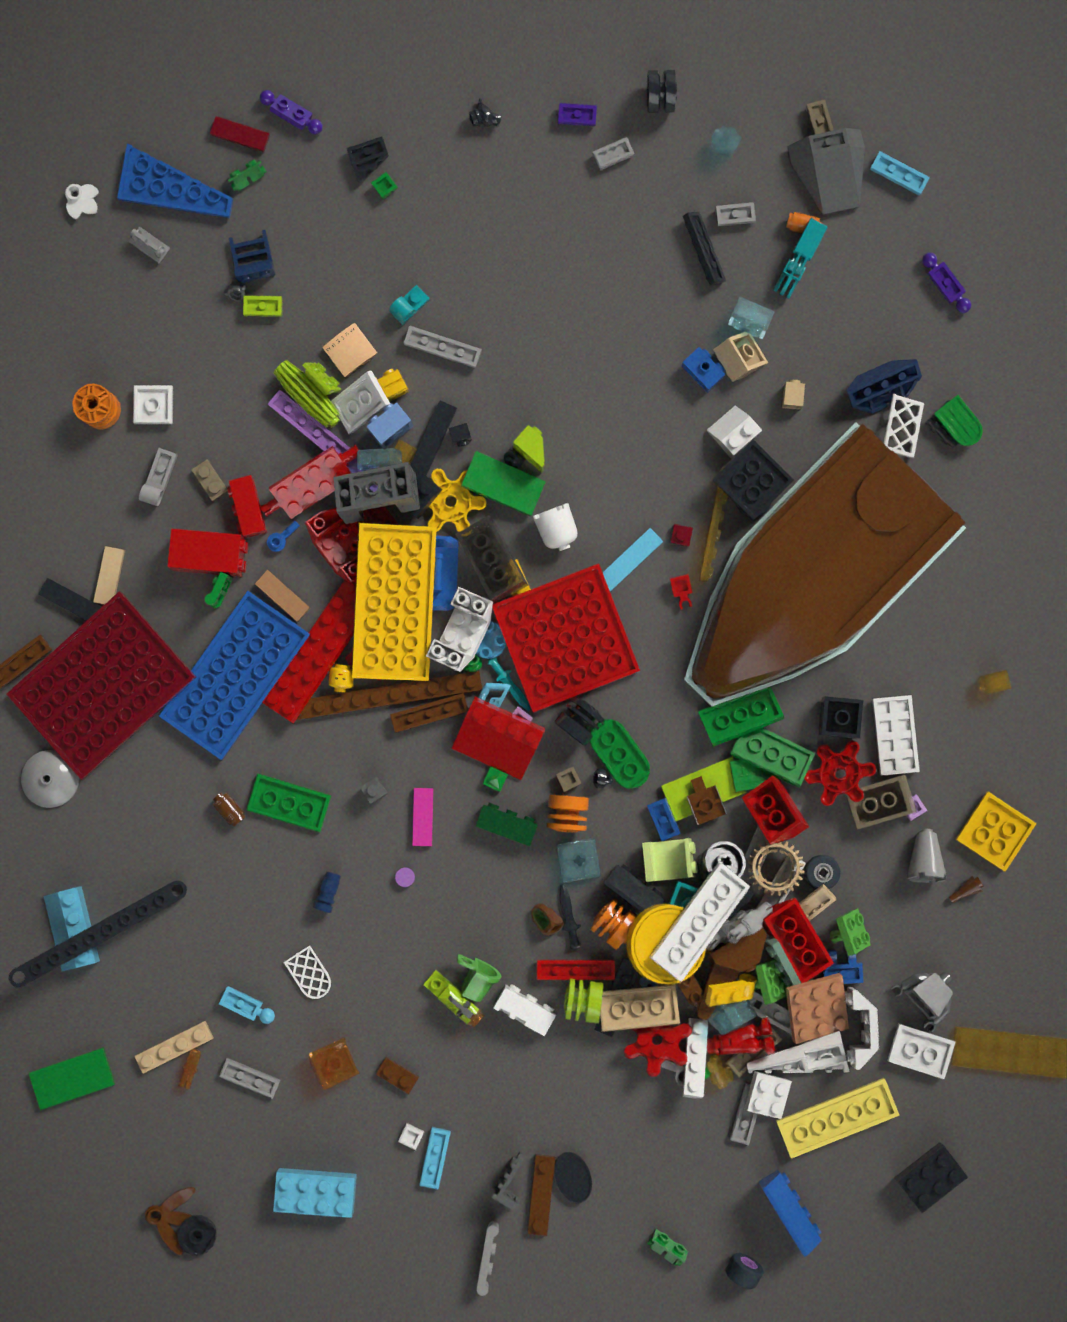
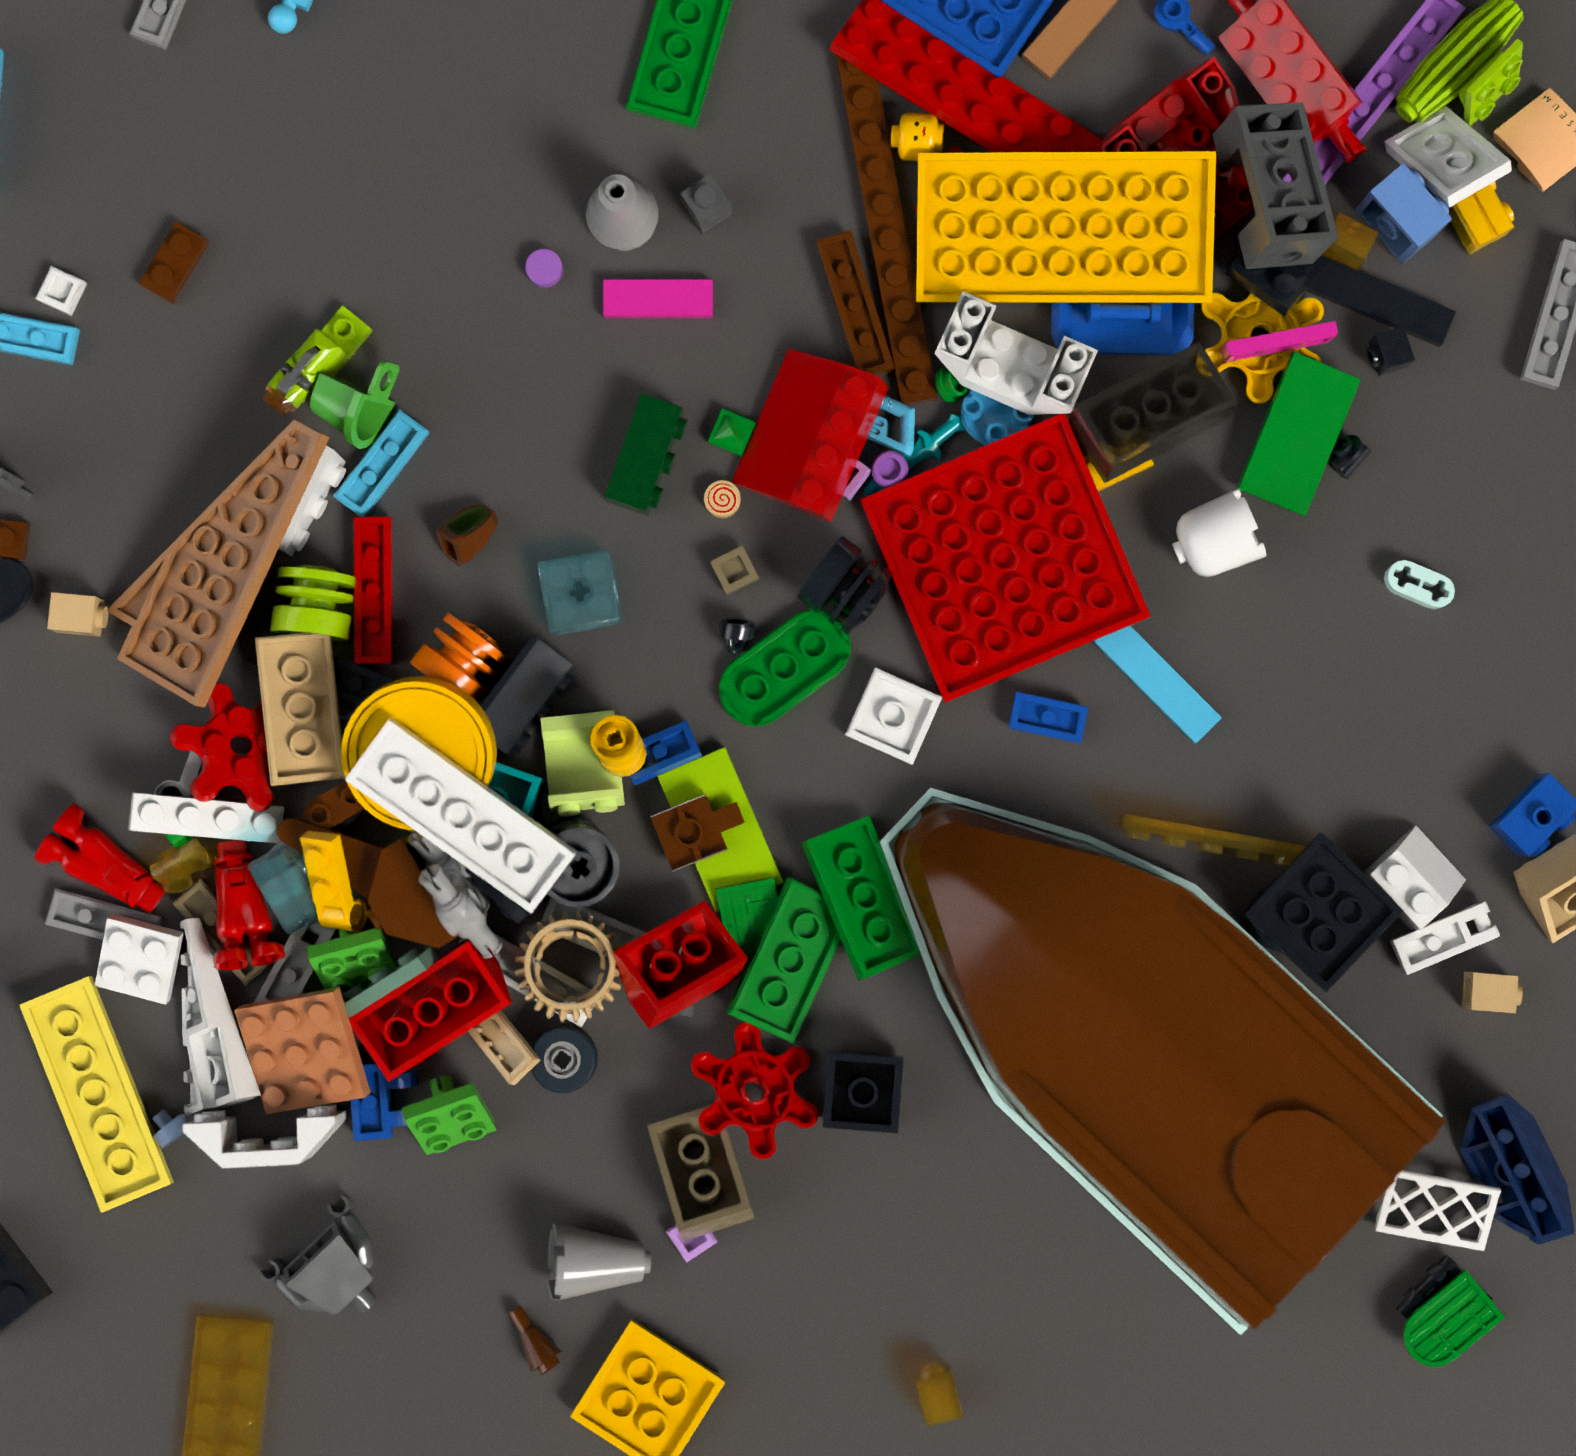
camera: 90 degrees right, 0 degrees up
(323, 970) = (341, 80): white window -> none
(327, 892) = (513, 123): dark blue axle -> none
(333, 1064) = (193, 141): clear orange slope -> none
(378, 458) = (1343, 188): clear light blue brick -> none
(385, 835) = (622, 213): none -> light grey cone
(456, 492) = (1279, 341): none -> dark pink tile
(508, 965) = (381, 464): none -> medium azure tile
(517, 696) = (889, 469): none -> medium lavender tile
(530, 446) = (1376, 482): lime slope -> none
(530, 784) = (722, 499): none -> tan tile
(567, 813) = (668, 566): orange wheel -> none
(571, 925) = (459, 580): black sword -> none
(574, 1058) = (204, 584): none -> medium nougat wing
(578, 421) = (1422, 576): none -> light aqua beam
(586, 1127) = (77, 614): none -> tan brick
(646, 697) = (893, 716): none -> white plate
(648, 617) = (1048, 717): none -> blue plate
(661, 840) = (618, 745): none -> yellow wheel
(681, 535) = (1208, 779): dark red plate -> none
(681, 587) = (1107, 779): red plate -> none
(717, 1115) = (99, 861): none -> red piece
(765, 417) = (1443, 938): none -> white plate
(856, 1079) = (169, 1128): none -> sand blue tile
(895, 735) = (831, 1200): white plate -> none
(921, 1051) = (223, 1254): white plate -> none

